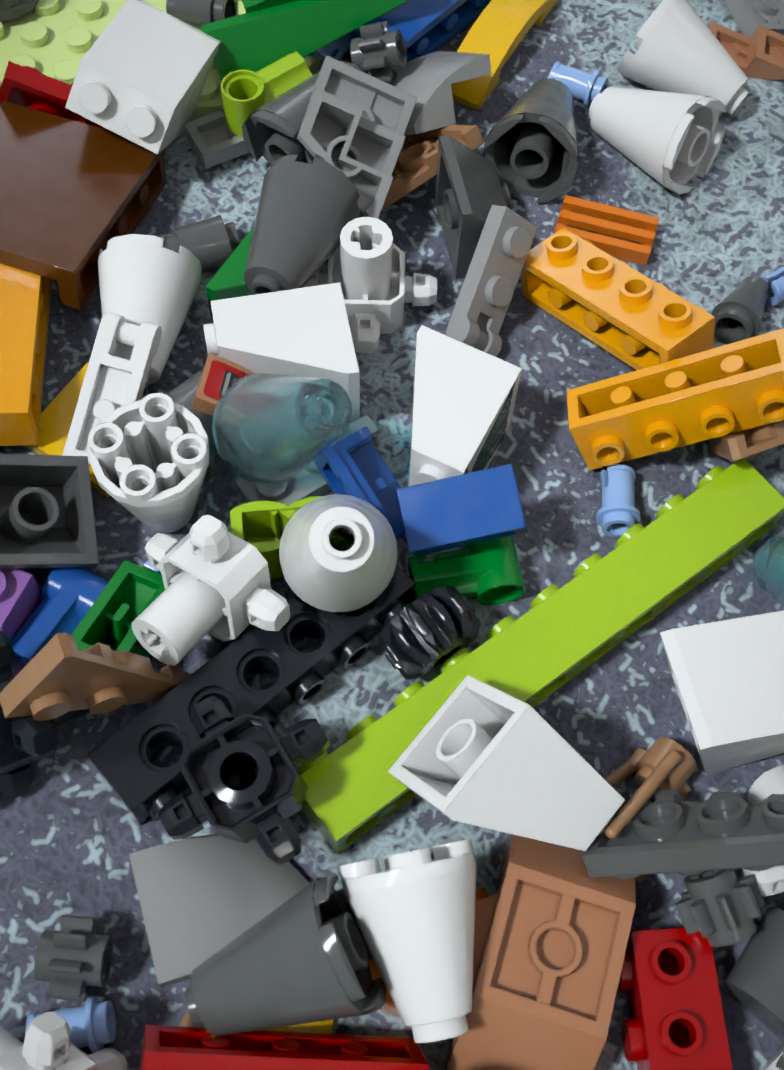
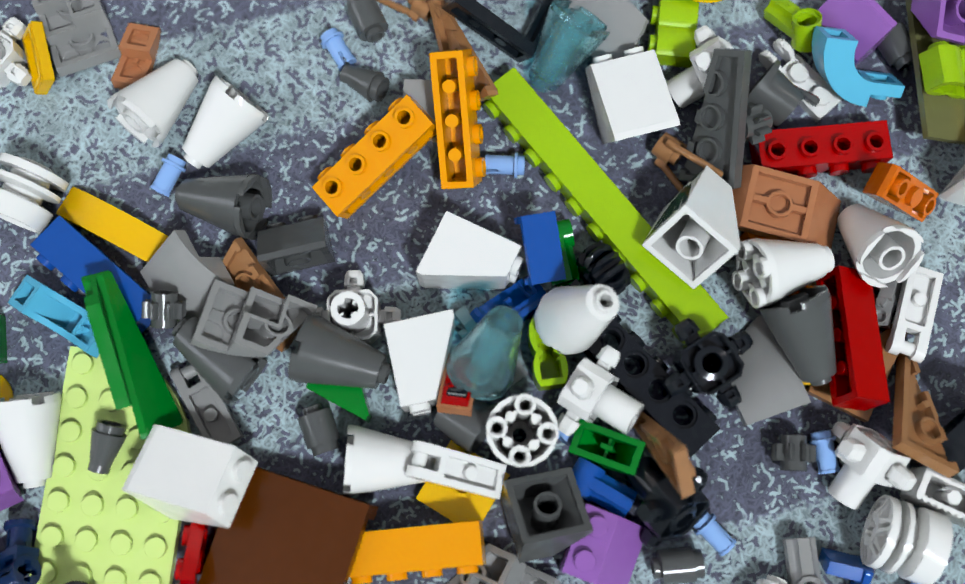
camera: 90 degrees left, 15 degrees up
(247, 91) = (190, 389): lime piece -> none
(491, 280) = (360, 234): light grey plate -> none
(610, 223) = (303, 137): orange tile -> none

